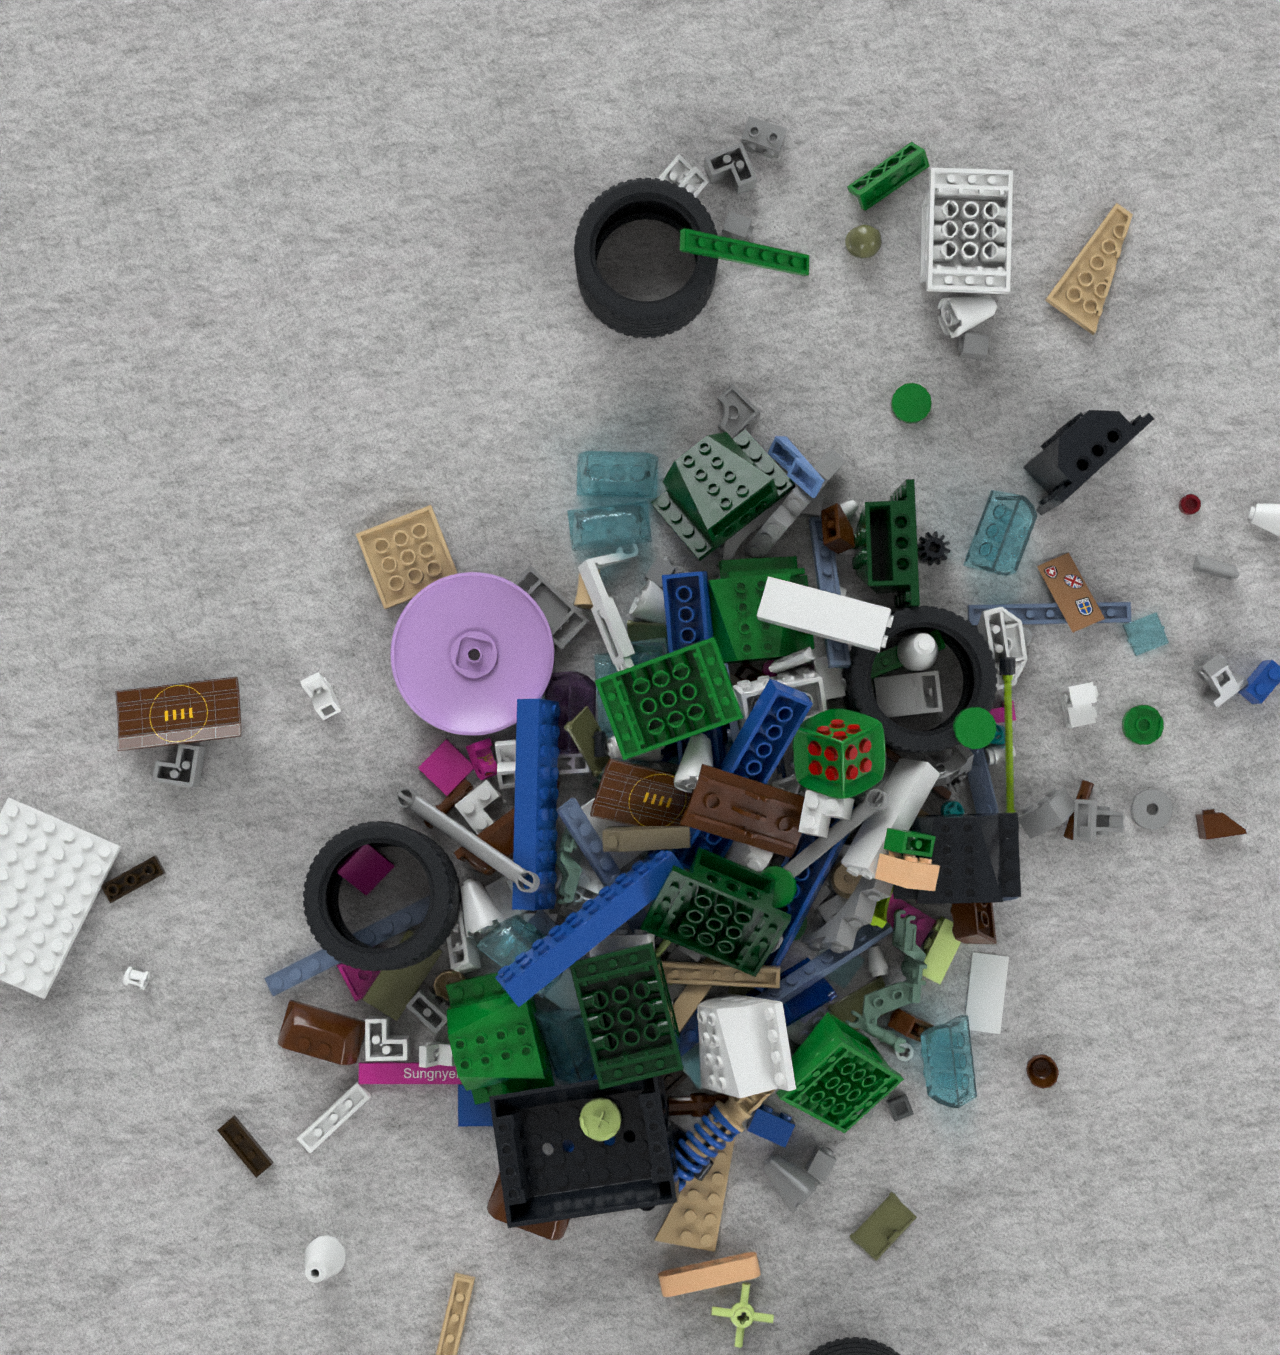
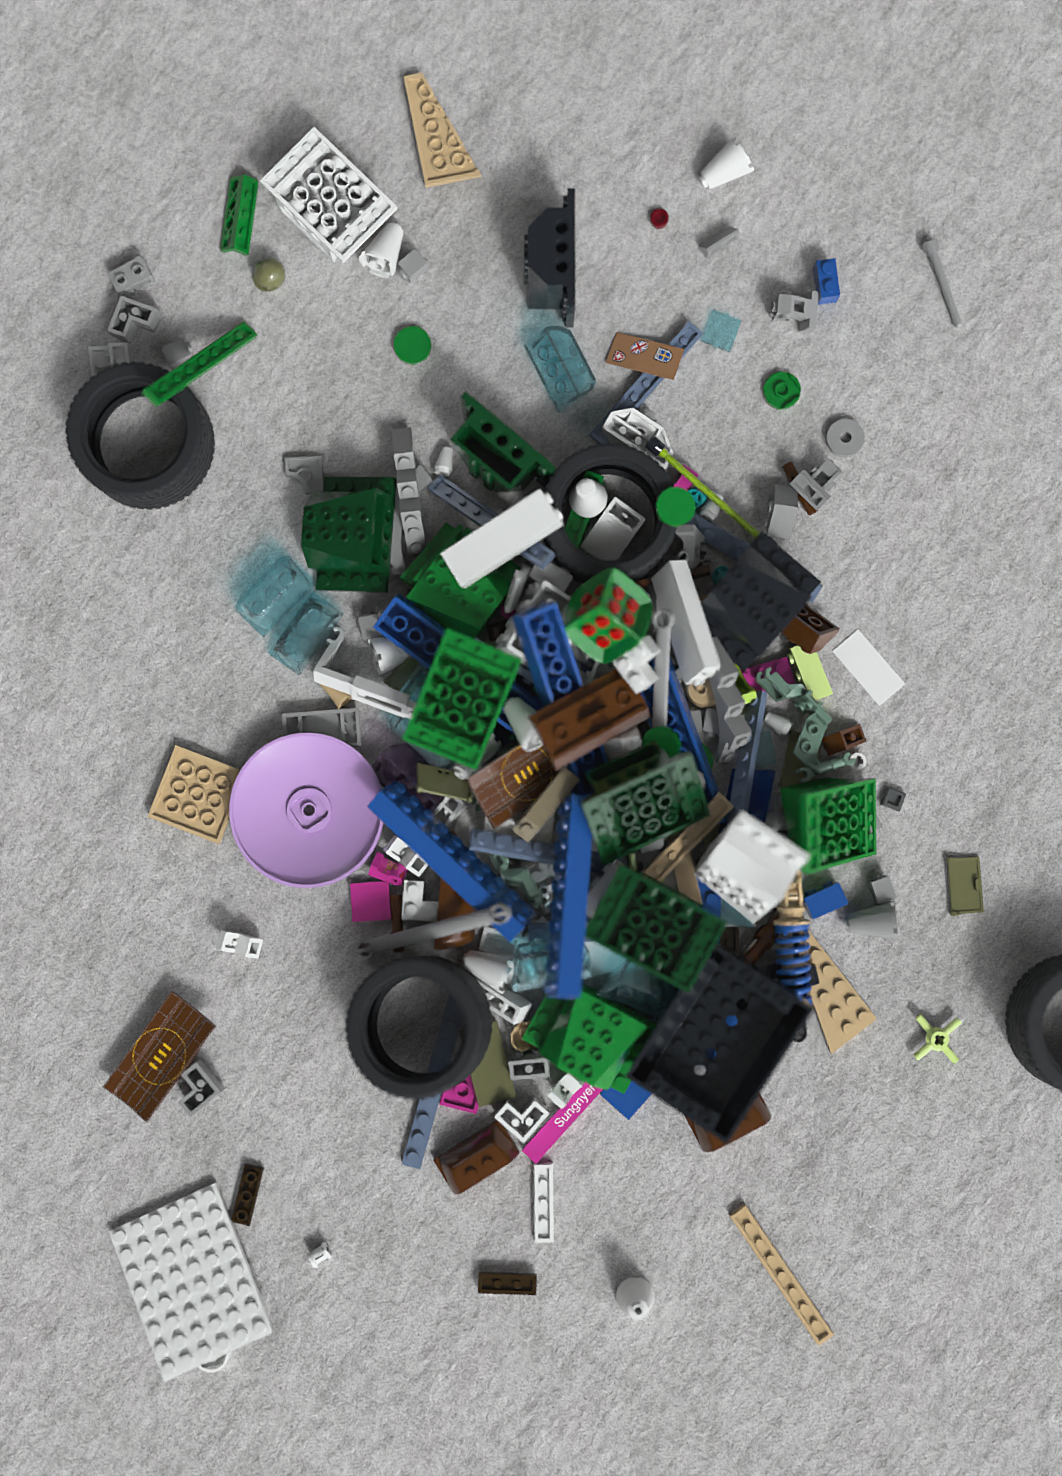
camera: 45 degrees left, 0 degrees up
(365, 868) = (389, 1022): dark pink tile -> none
(600, 743) = (451, 777): black pin -> none
(600, 1119) = (711, 1013): yellowish green tile -> none
(709, 1274) = (888, 1036): light nougat beam -> none
(796, 464) = (381, 463): medium blue slope -> none
(836, 529) = (453, 477): reddish brown slope -> none
(907, 871) = (730, 642): light nougat brick -> none
(909, 842) = (712, 623): green brick -> none
(933, 556) = (524, 417): black gear -> none
(949, 1062) = (892, 736): clear light blue windscreen -> none
(1042, 1071) = (956, 677): reddish brown hair -> none
(1077, 704) = (726, 422): white brick -> none
(1217, 825) = (896, 403): reddish brown slope -> none

